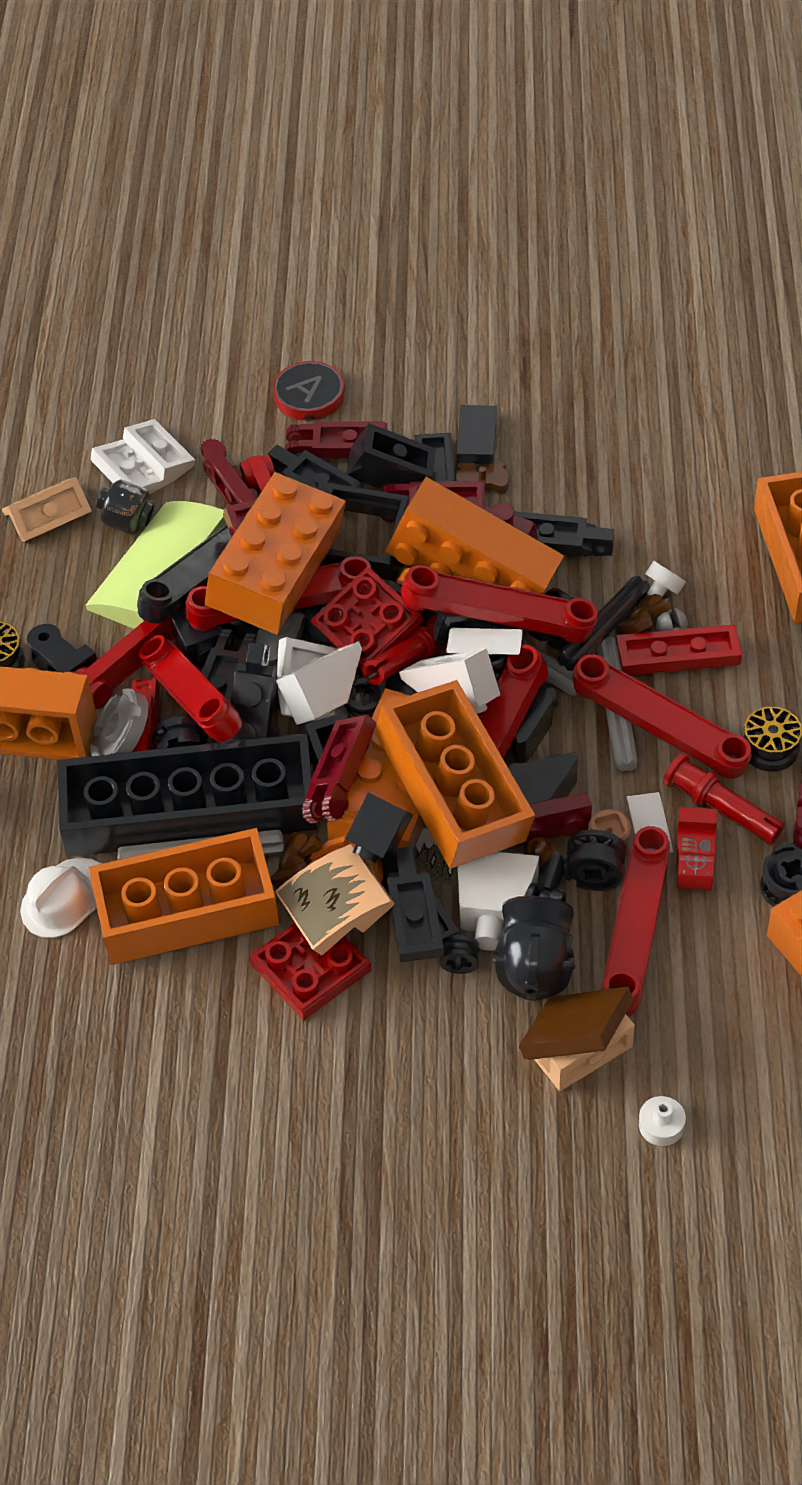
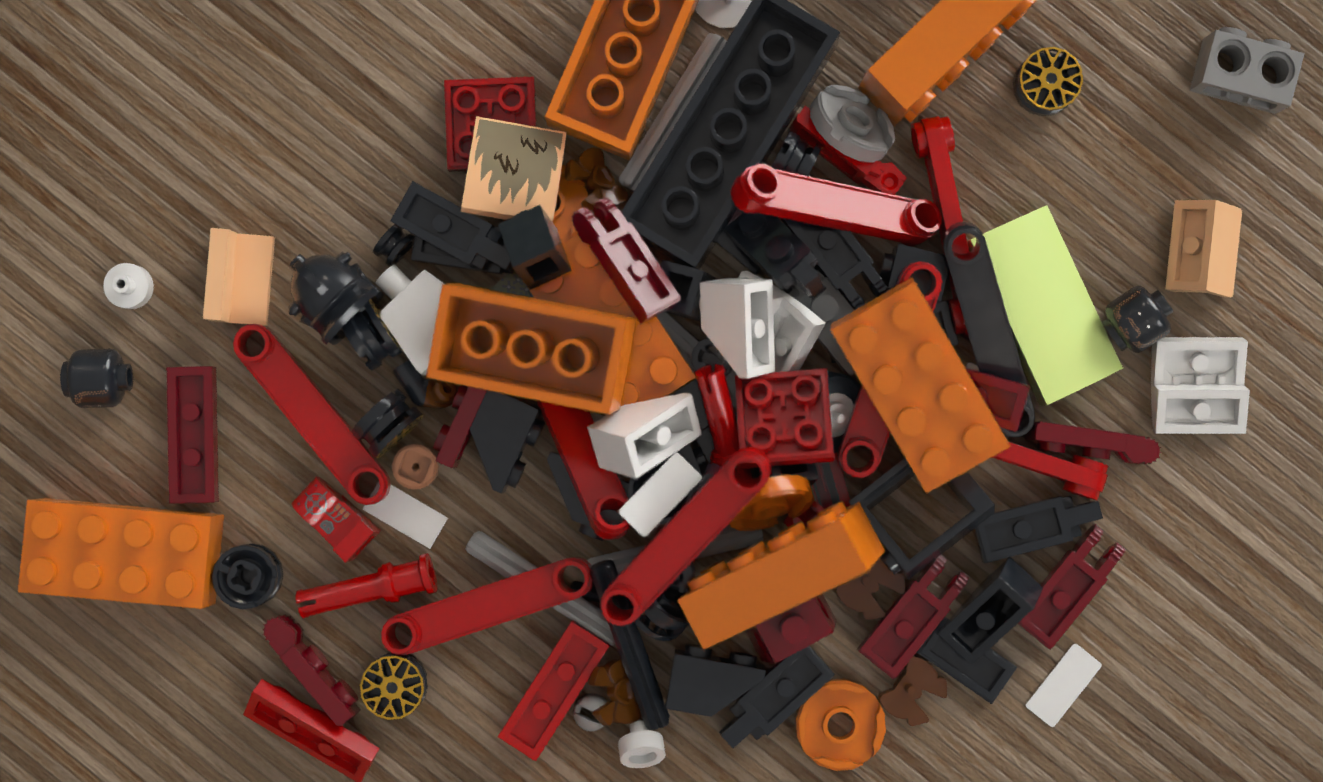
camera: 125 degrees right, 35 degrees up
(54, 653) = (996, 130): black leg -> none
(308, 390) = (1167, 614): tile -> none
(404, 413) = (1063, 685): none -> white sticker
(476, 434) = (970, 728): black tile -> none
(537, 481) = (848, 750): none -> orange tile
(576, 1023) = (239, 274): reddish brown tile -> none
(586, 569) = (709, 683): none -> black slope
(728, 987) = (192, 434): none -> dark red plate
(752, 1082) = (96, 378): none -> black head

